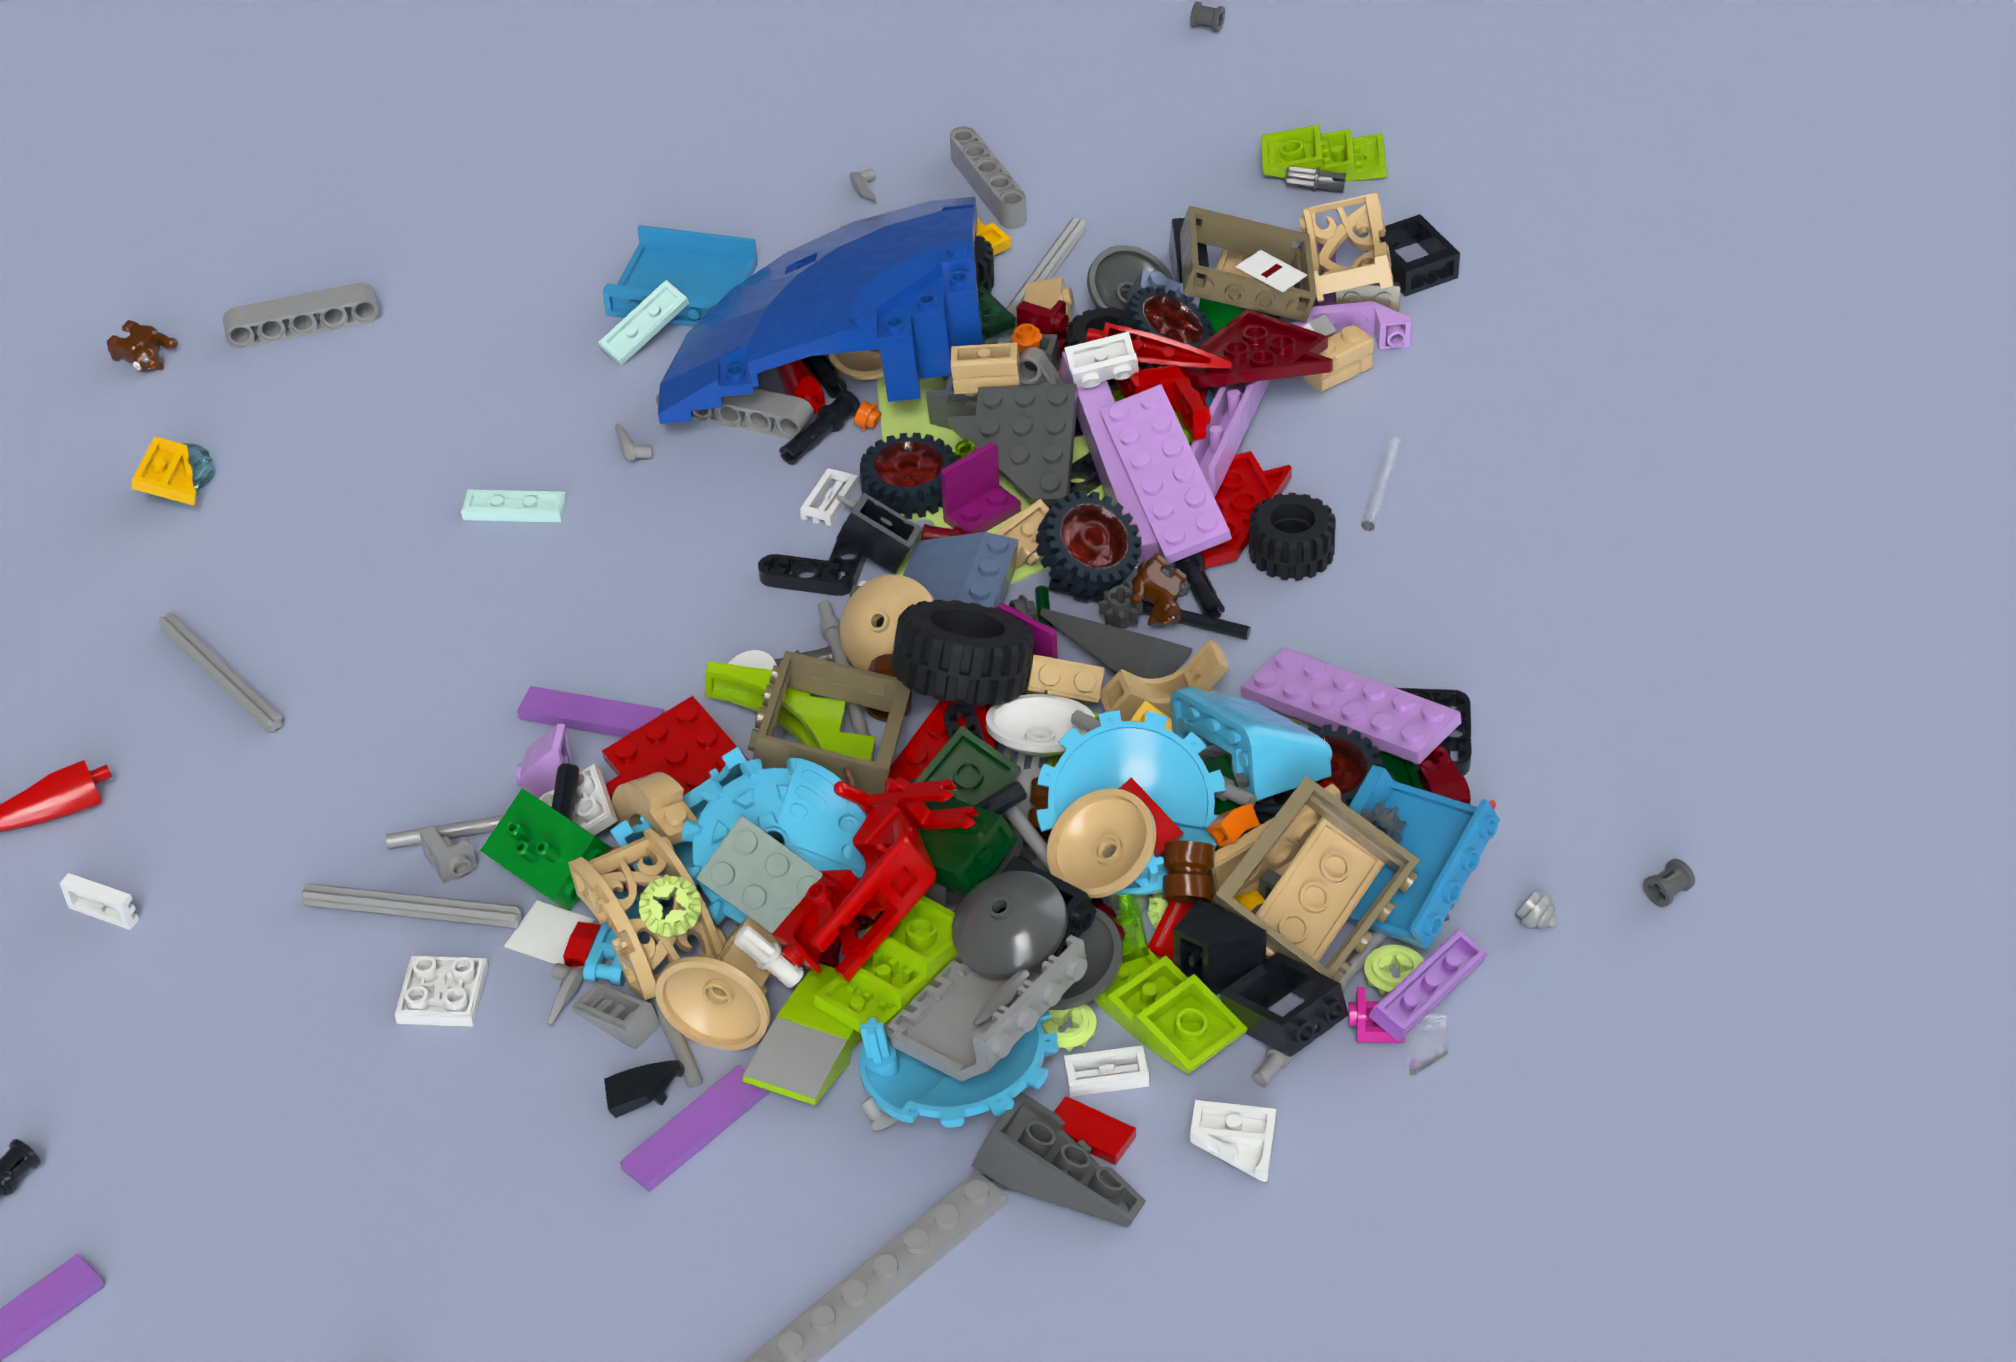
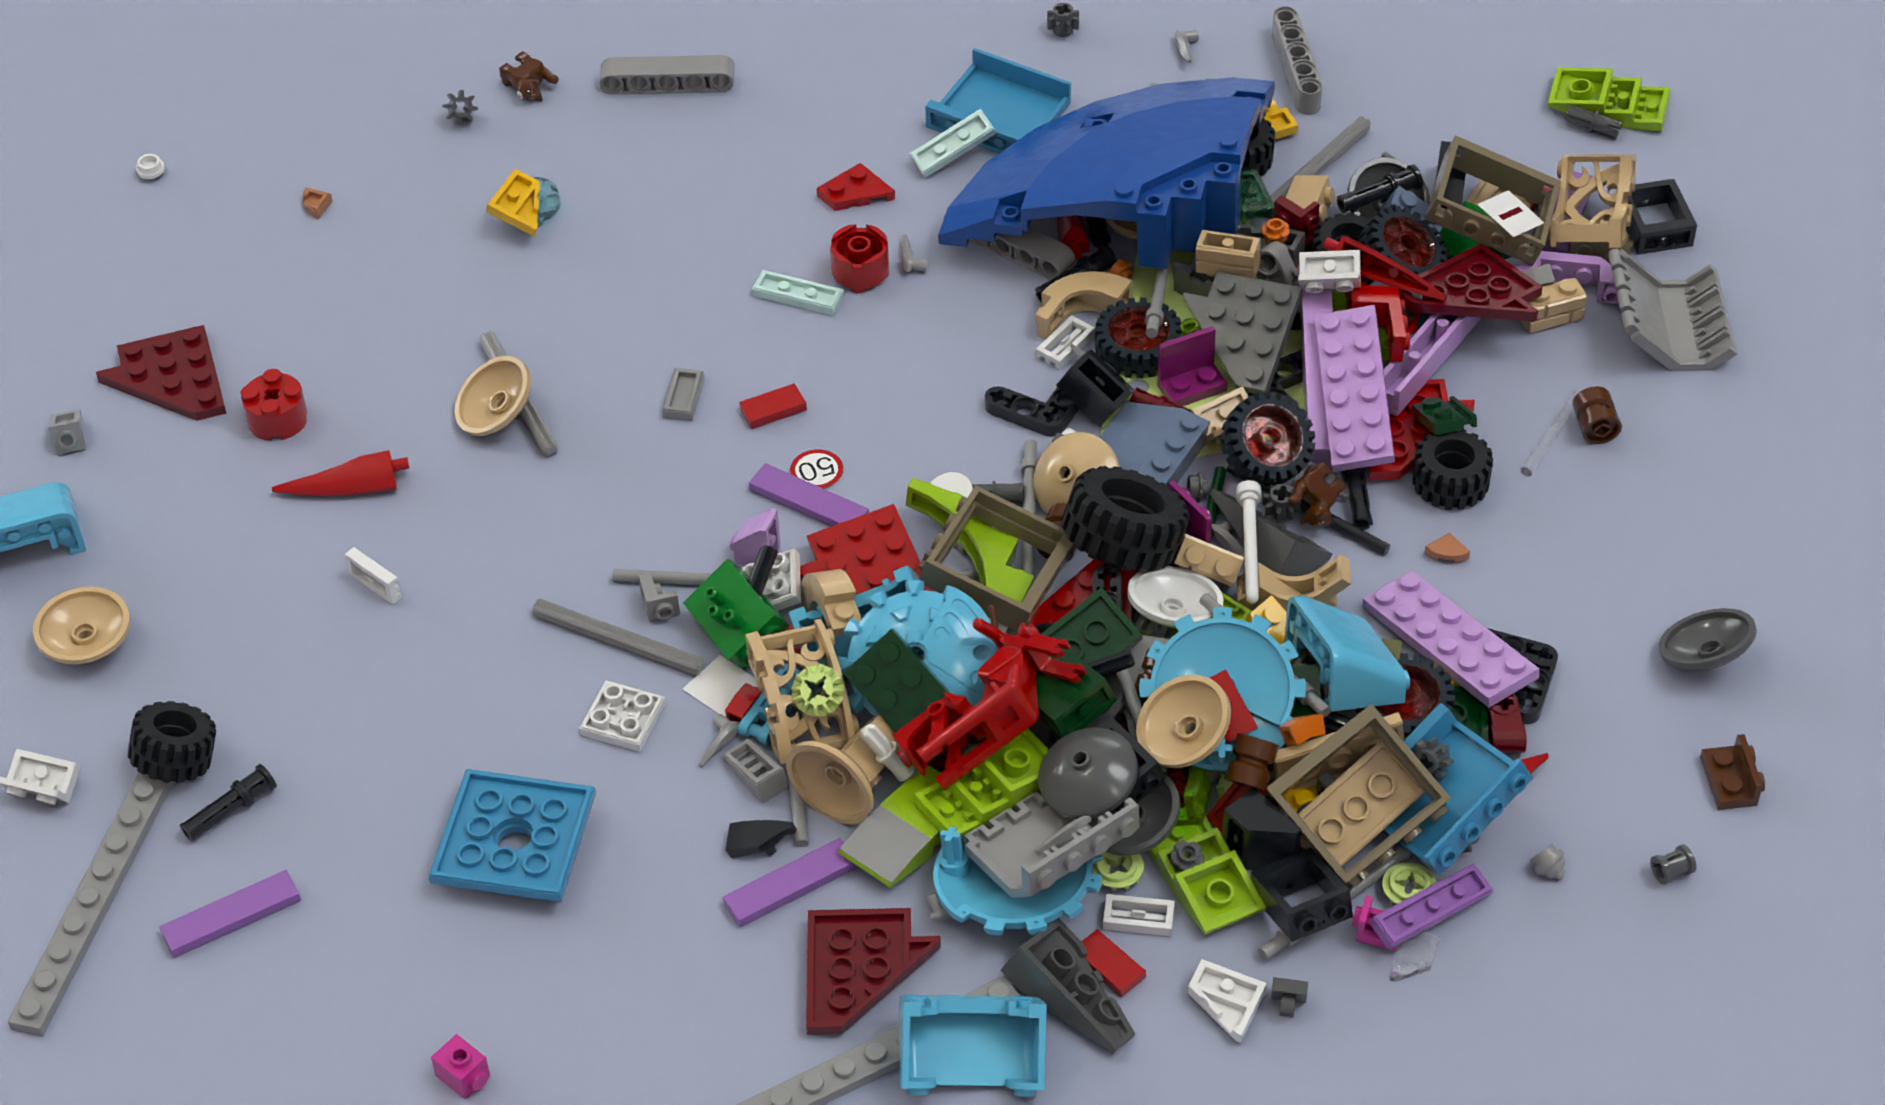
camera: 15 degrees right, 5 degrees up
(79, 391) = (452, 106): none -> dark grey gear
(192, 678) = (492, 396): none -> tan dish
(323, 1120) = (502, 805): none -> dark azure piece
(413, 635) = (683, 394): none -> light grey tile
(520, 626) = (773, 405): none -> red tile
(546, 389) = (854, 188): none -> red wing
(575, 454) = (859, 257): none -> red brick
(591, 679) = (817, 467): none -> sticker
(725, 183) = (1063, 19): none -> dark grey gear
(801, 1197) = (857, 961): none -> dark red wing
(831, 444) = (1079, 293): none -> tan arch
(923, 444) = (1154, 314): none -> light grey bar
(967, 1252) = (972, 1042): none -> medium azure windscreen
(1067, 651) = (1226, 539): none -> light grey bar
(1087, 605) = (1248, 496): none -> white piece
(1123, 278) = (1407, 179): none -> black pin
(1137, 1000) = (1180, 861): none -> dark grey plate
(1267, 484) = (1443, 416): none -> dark green plate
(1305, 1113) = (1289, 992): none -> dark grey tile
(1313, 618) = (1448, 549): none -> nougat tile
(1423, 454) = (1596, 415): none -> reddish brown wheel
(1472, 346) = (1674, 320): none -> light grey hinge
(1622, 647) = (1708, 639): none -> dark grey dish
(1696, 778) = (1733, 774): none -> reddish brown bracket

